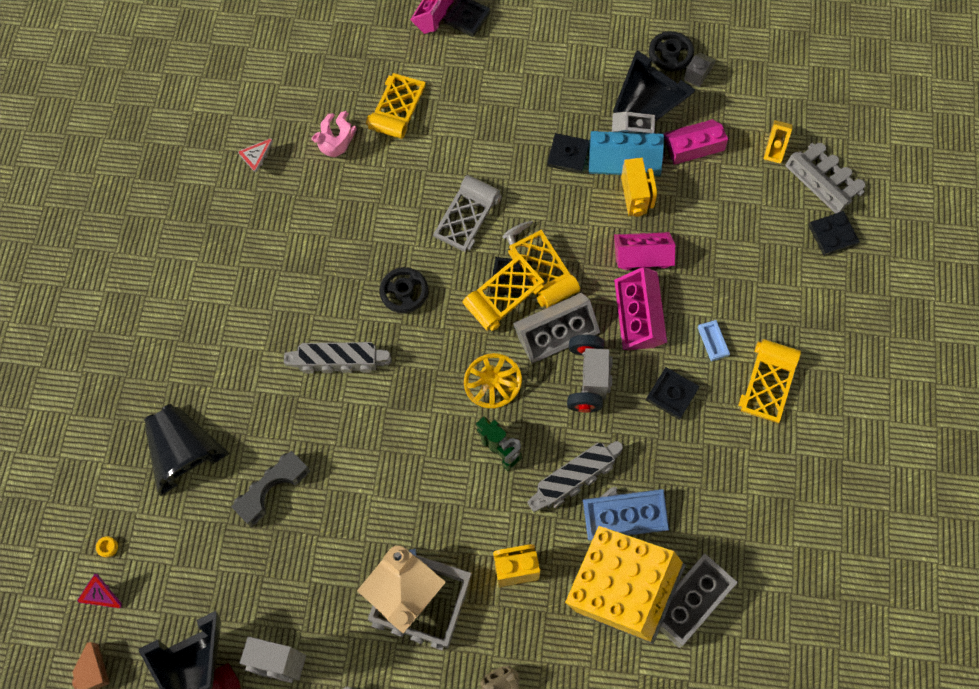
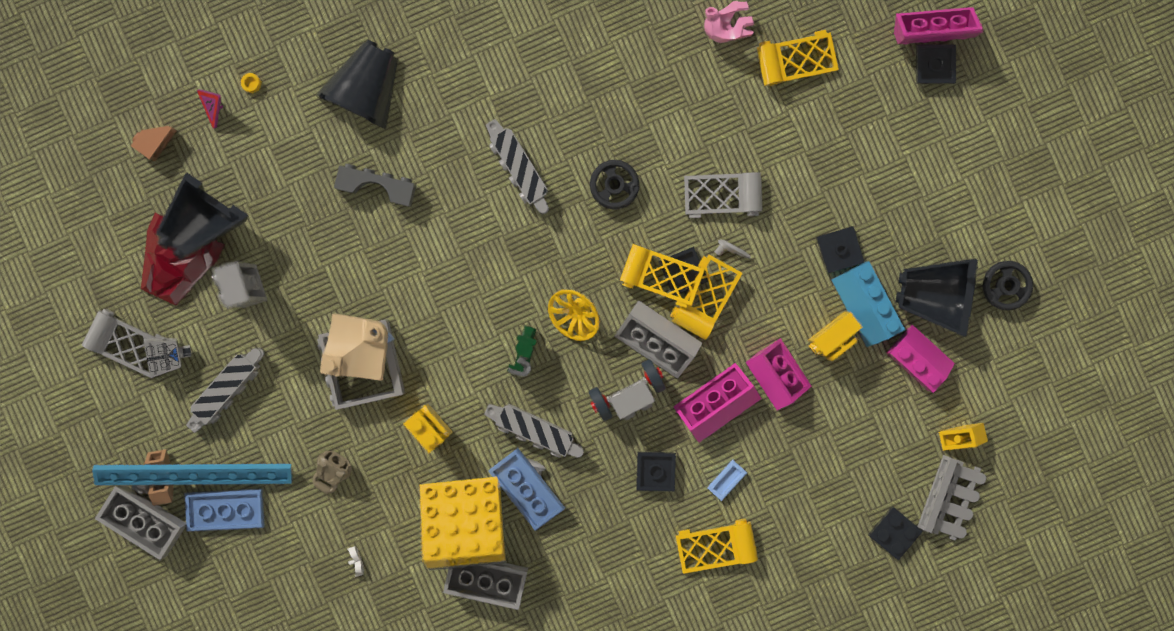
camera: 60 degrees right, 20 degrees up
(633, 122) = (898, 296): light grey slope -> none
(699, 69) = (1004, 322): flat silver slope -> none

